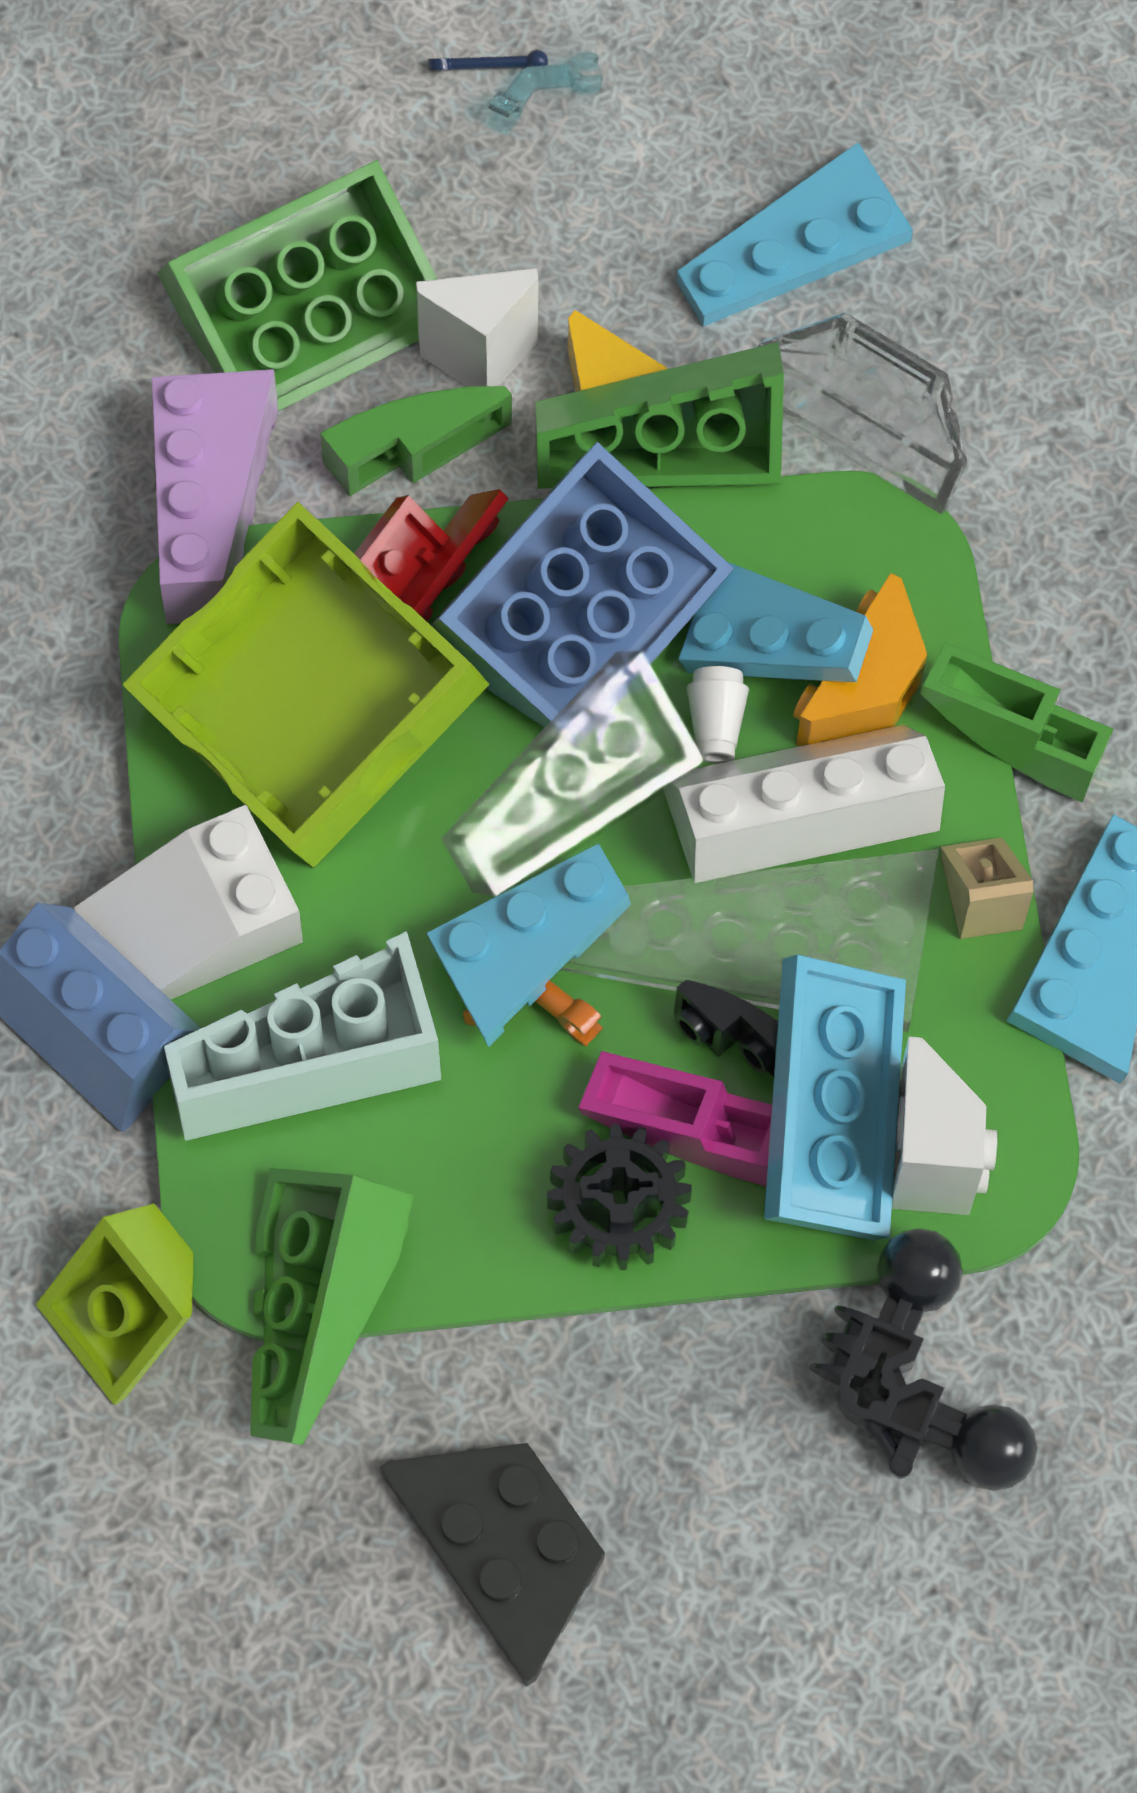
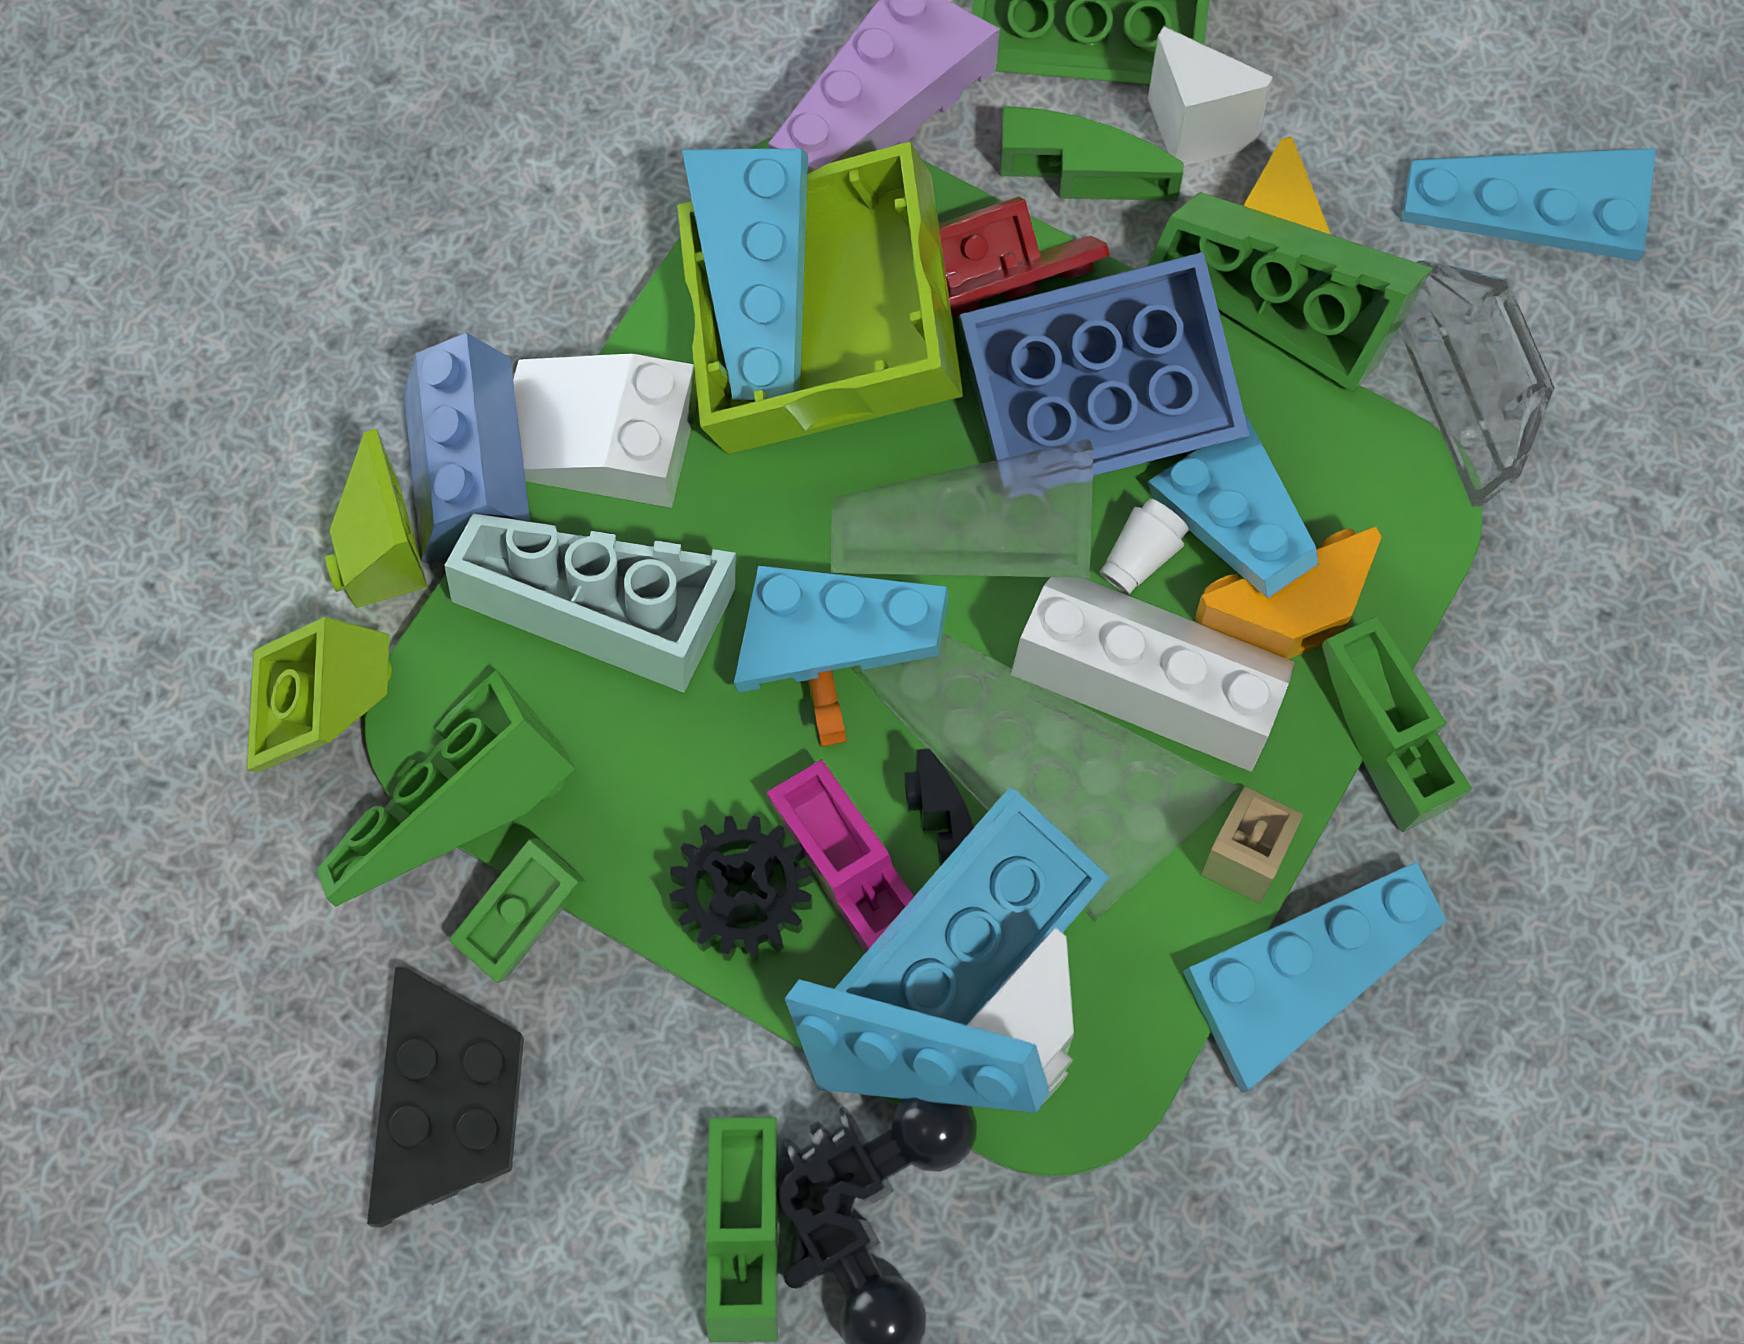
camera: 40 degrees right, 5 degrees up
(78, 1124) = (373, 531): none -> lime slope
(222, 675) = (754, 256): none -> medium azure wing
(447, 1346) = (516, 910): none -> bright green plate
(831, 1462) = (742, 1230): none -> bright green slope
(858, 1222) = (907, 1054): none -> medium azure wing

